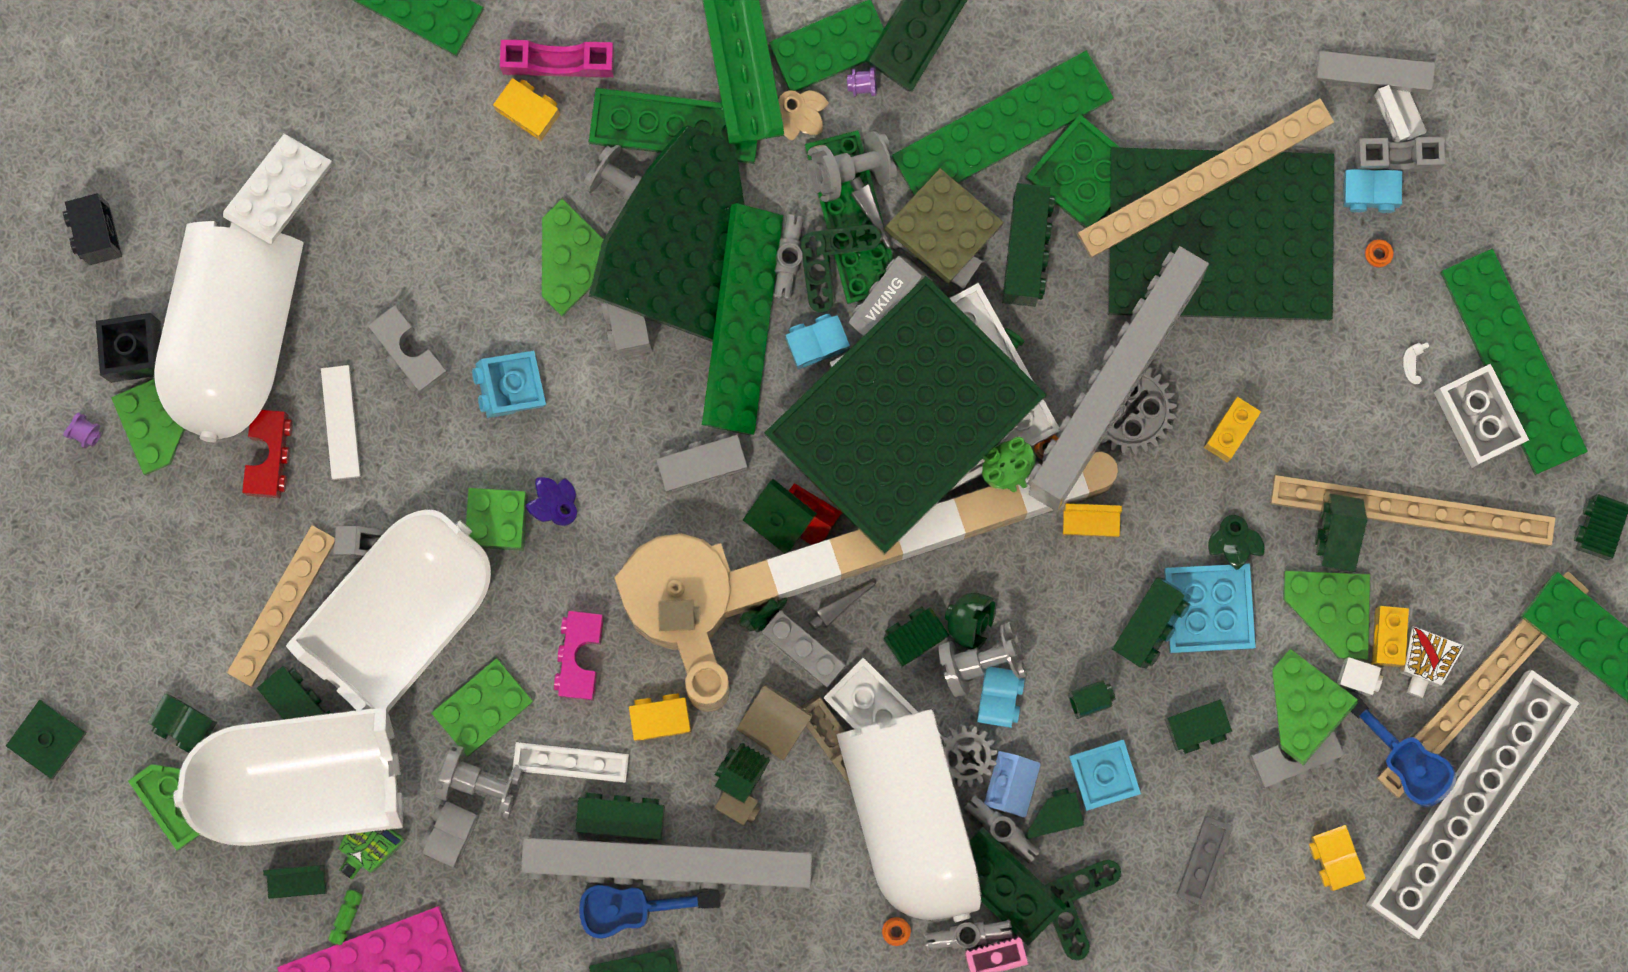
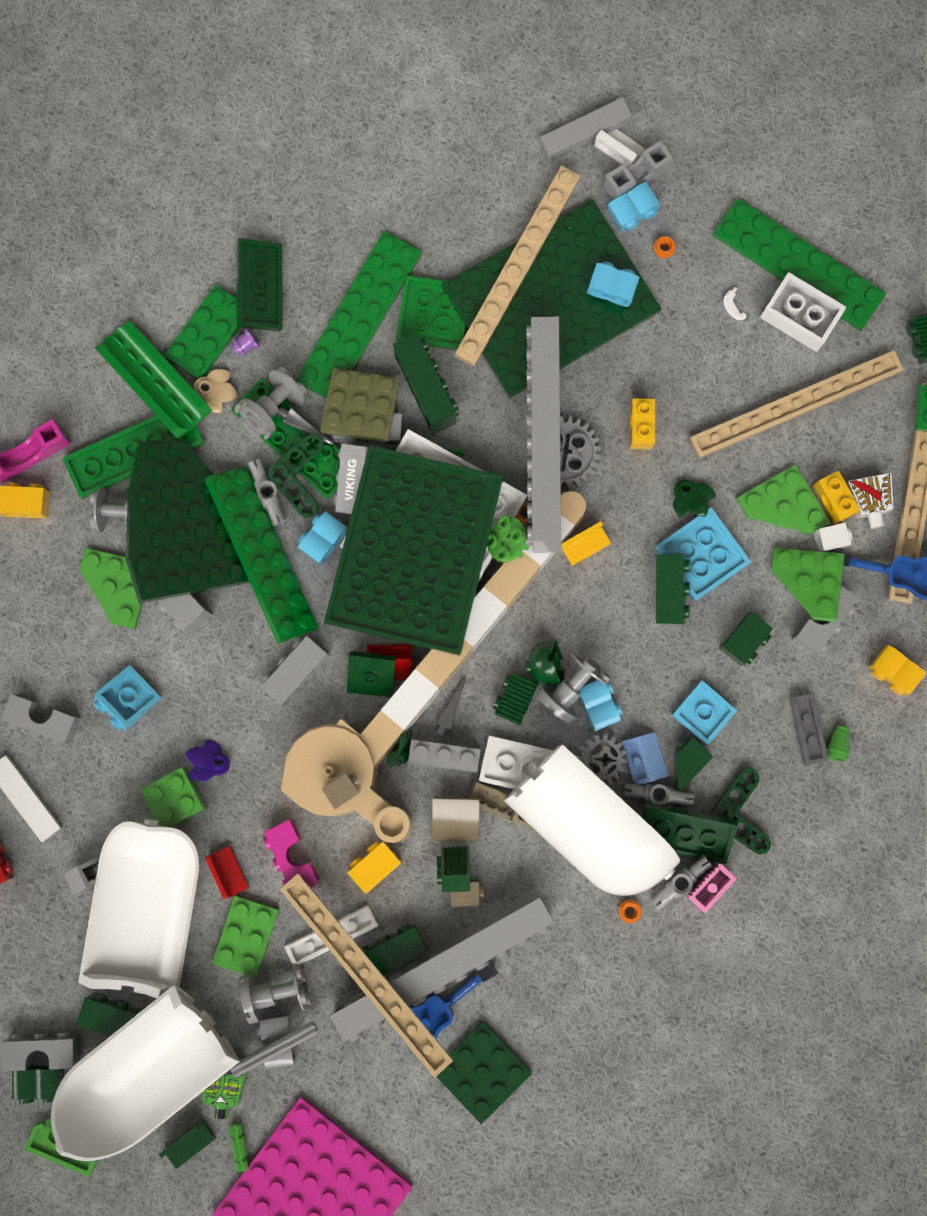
camera: 30 degrees left, 0 degrees up
(182, 678) = (60, 1049): none -> light grey arch
(282, 606) = (60, 954): tan plate -> none
(445, 838) = (274, 1049): none -> light grey axle
(504, 629) = (227, 872): none -> red panel
(586, 818) = (367, 975): none -> tan plate
(1091, 699) = (663, 666): dark green brick -> none
(1226, 897) = (839, 744): none -> bright green cone
(1294, 260) = (613, 284): none -> medium azure brick
(1341, 532) = (761, 446): dark green brick -> none

